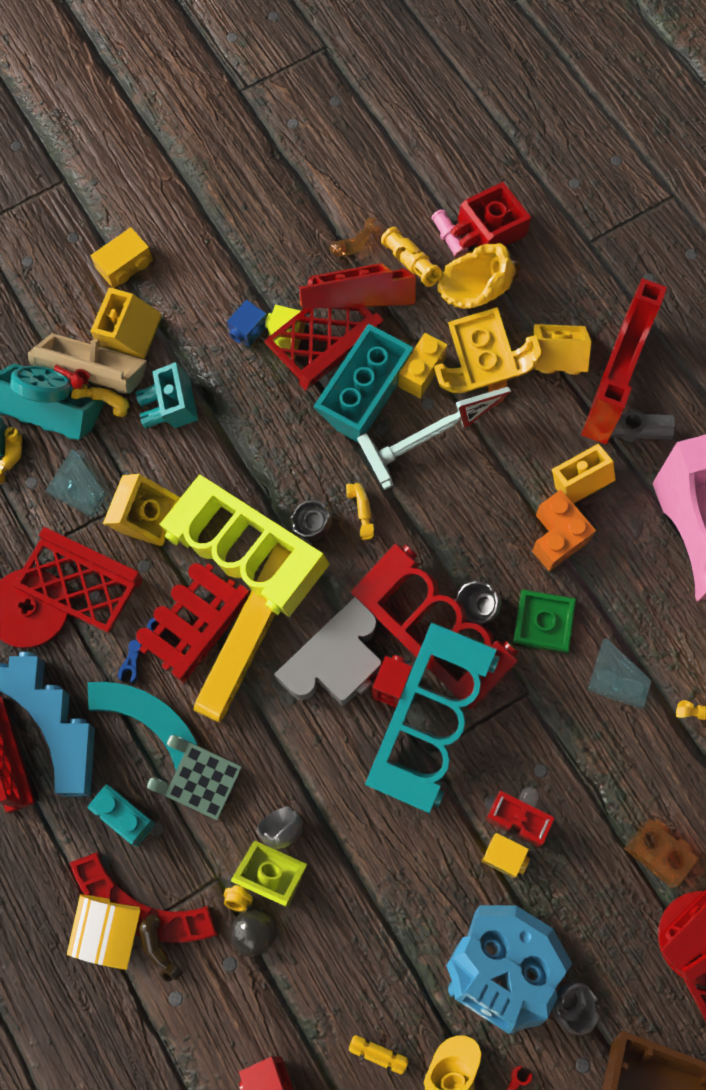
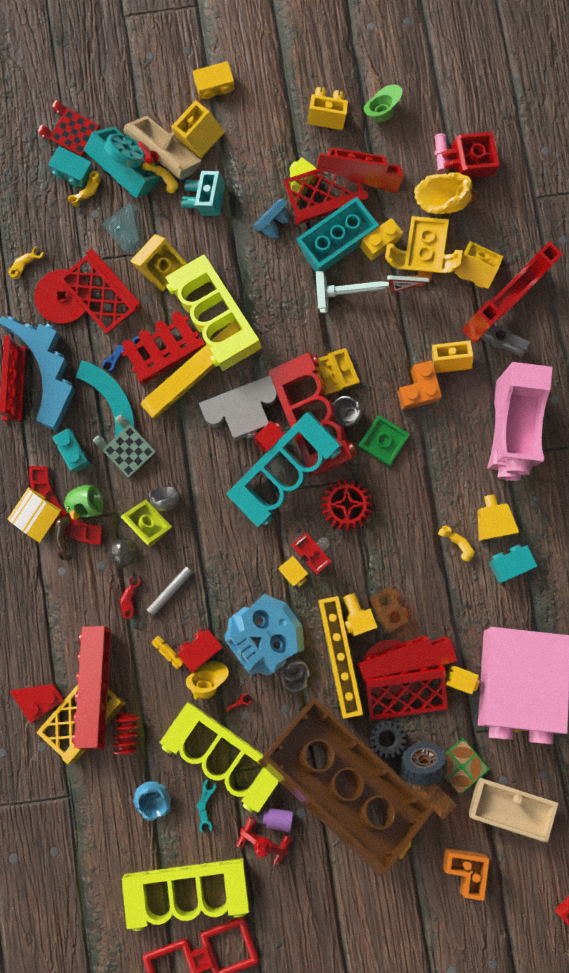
camera: 15 degrees right, 10 degrees up
(168, 882) = (84, 502): none -> bright green piece
(237, 898) = (121, 529): yellow plate -> none
(247, 323) = (277, 162): blue brick -> none
(263, 403) = (266, 223): none -> dark azure tile
(283, 237) = (326, 110): none -> yellow brick
(286, 1002) = (126, 600): none -> red arm
(311, 520) = (264, 314): flat silver hair -> none
(342, 960) = (169, 591): none -> light grey piece
(350, 202) = (383, 104): none -> bright green piece
(354, 245) = (374, 135): clear orange arm -> none
(364, 511) = (300, 322): yellow arm -> none
(411, 256) = (407, 159): yellow piece -> none
(423, 1031) = (199, 650): none -> red brick
(441, 556) = (337, 371): none -> yellow slope
(540, 742) = (355, 504): none -> red gear
(618, 677) = (413, 494): clear light blue wing -> none
(628, 887) = (357, 620): none -> yellow brick
(629, 954) = (340, 657): none -> yellow brick

